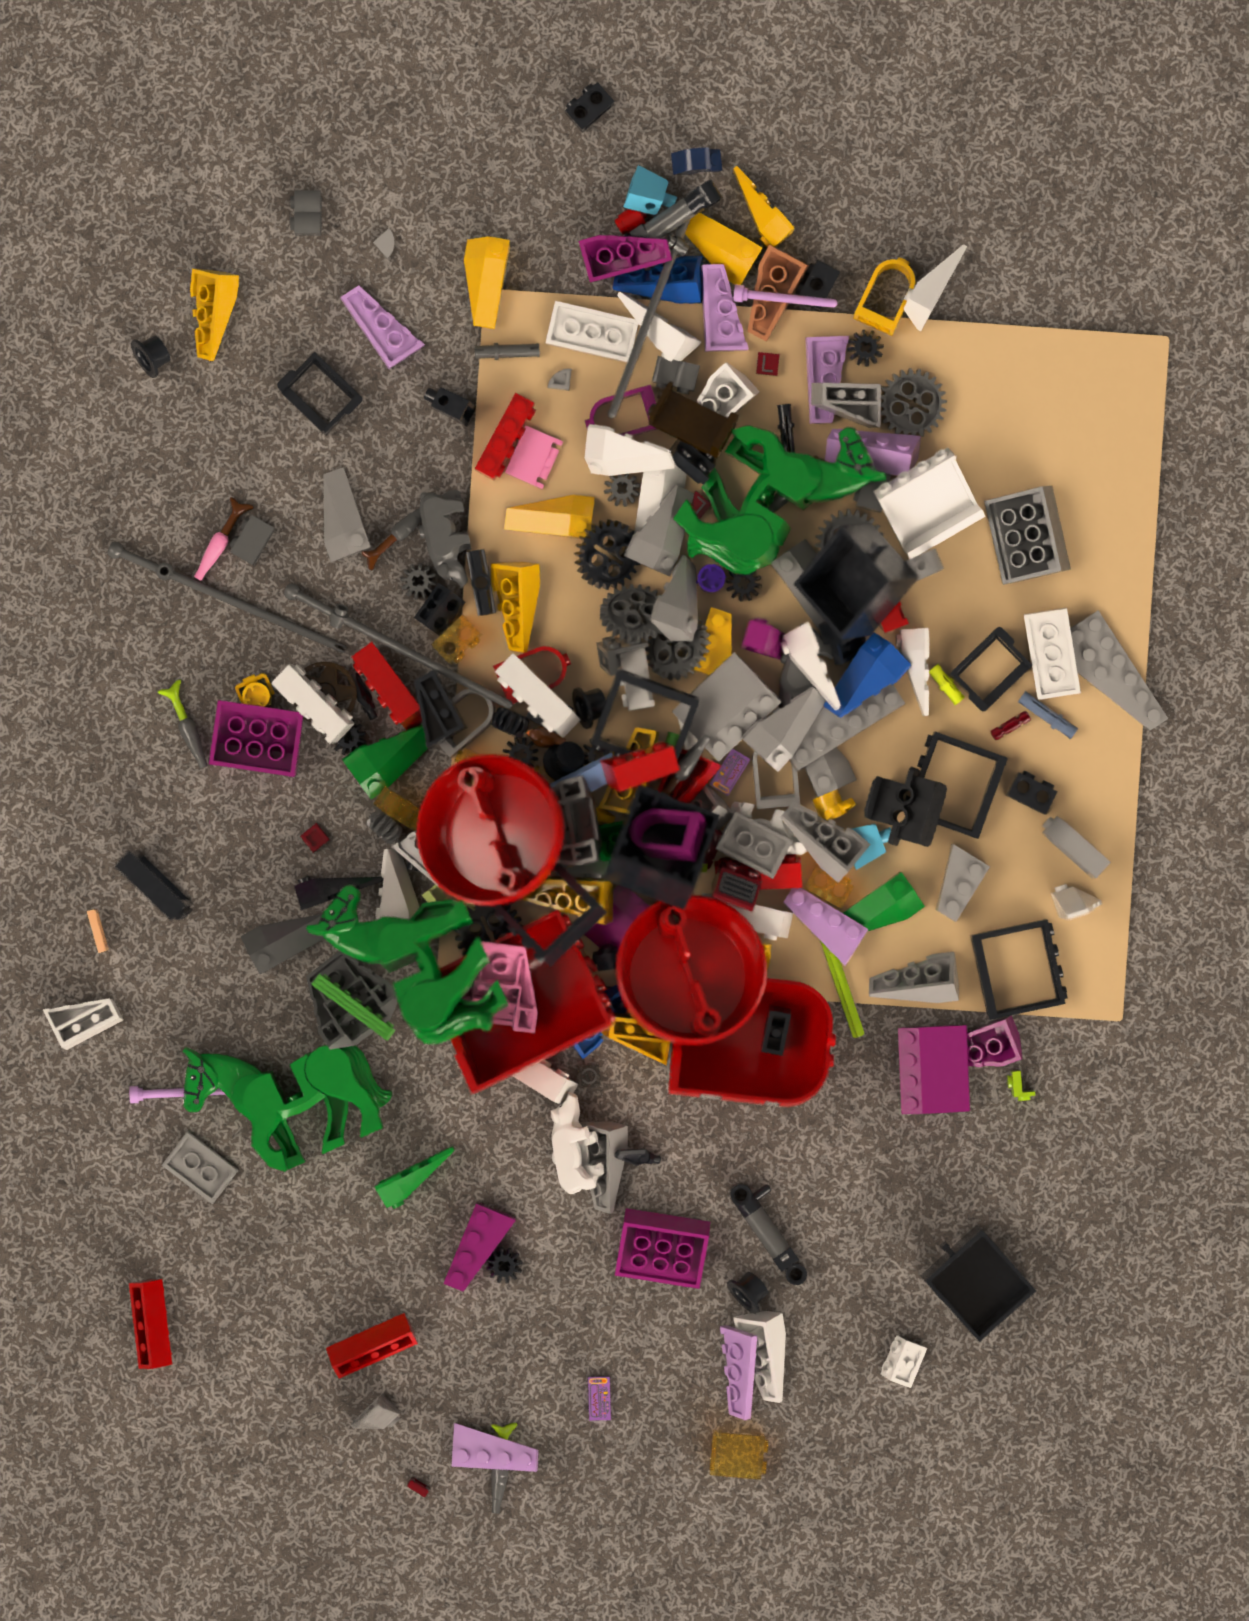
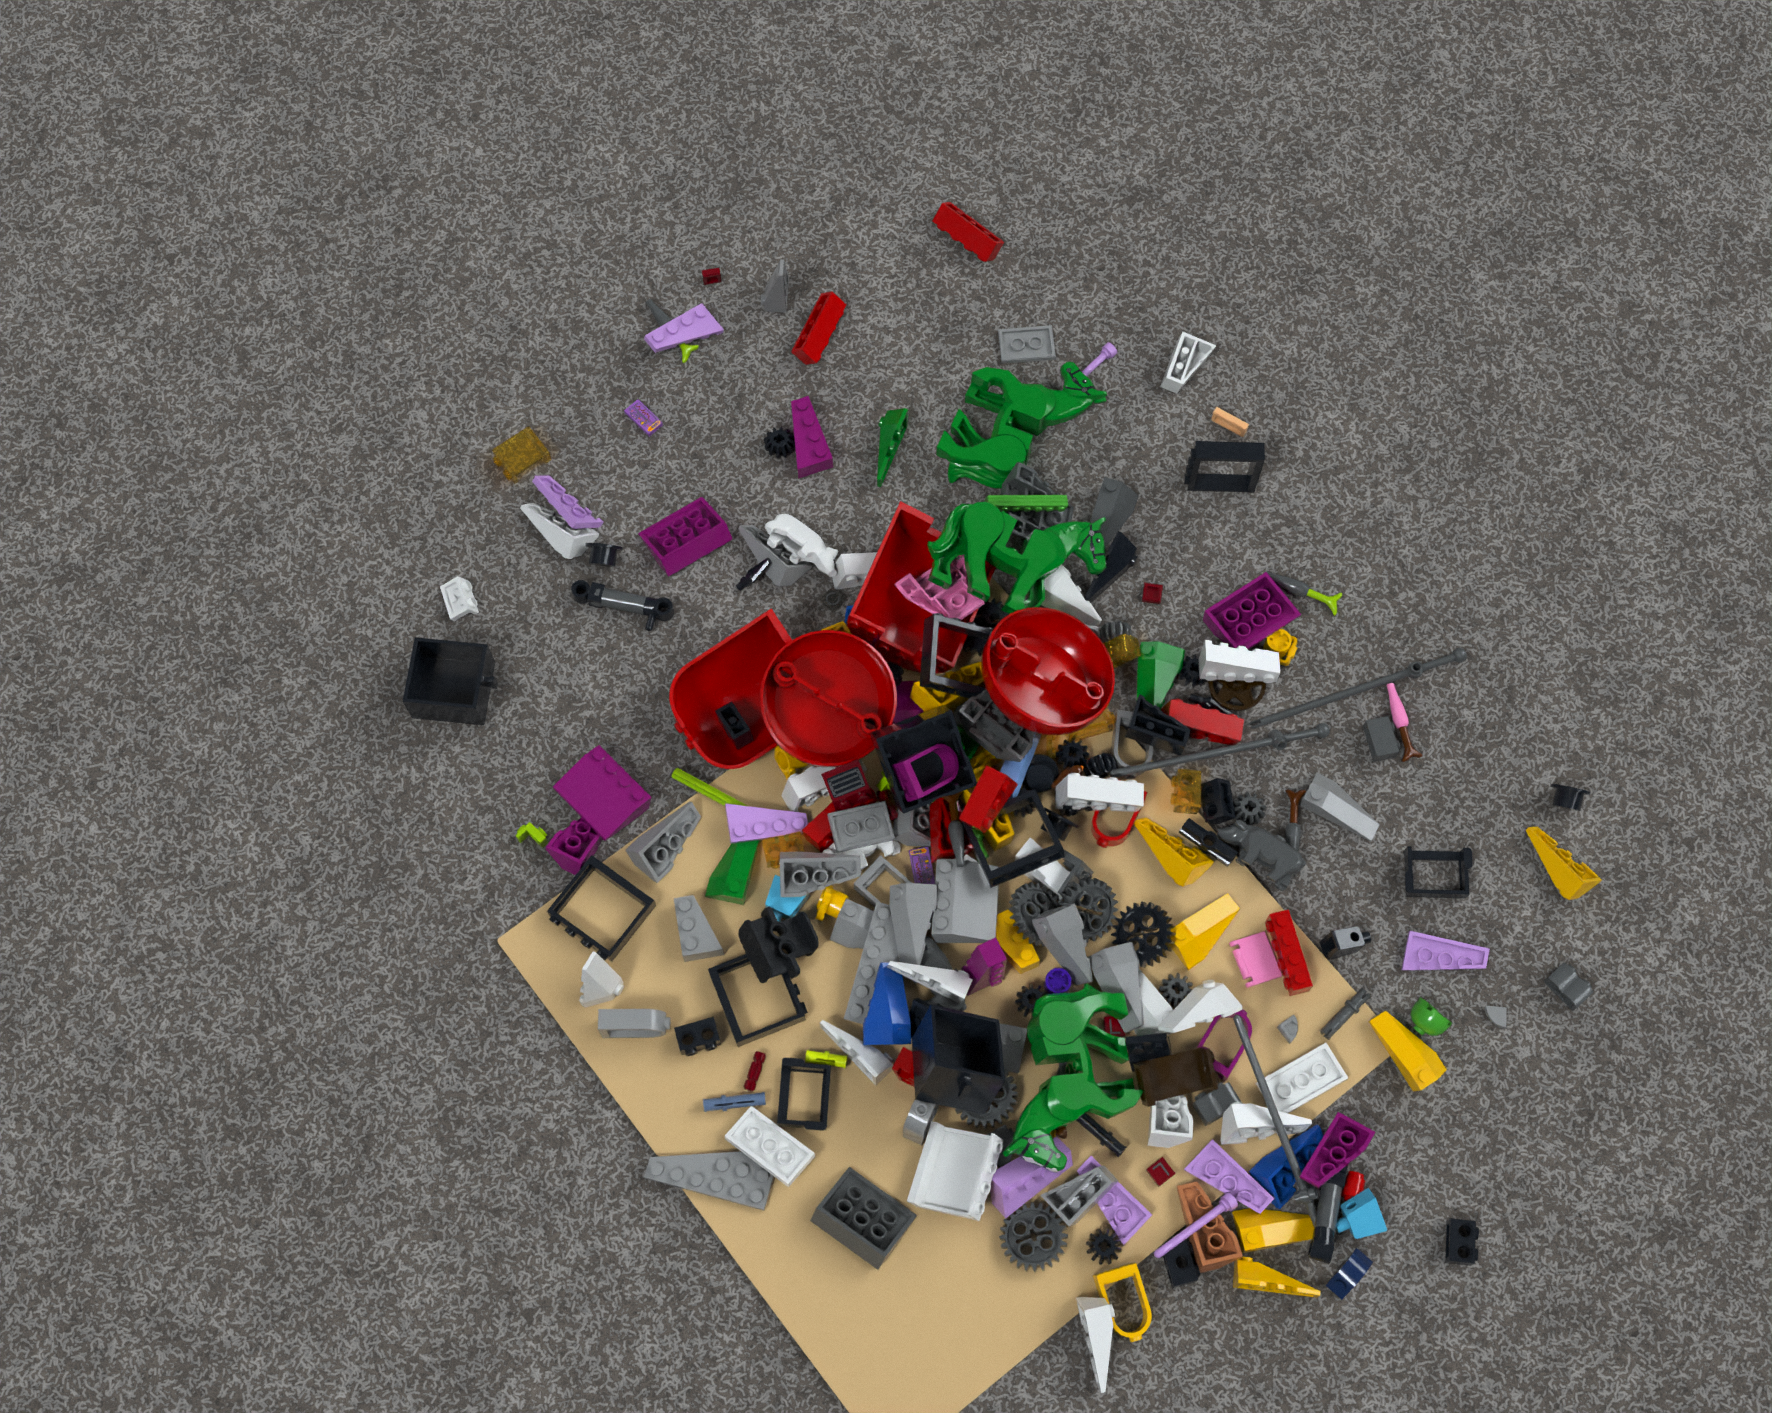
camera: 135 degrees right, 20 degrees down
(445, 288) = (1428, 1019): none -> bright green cylinder

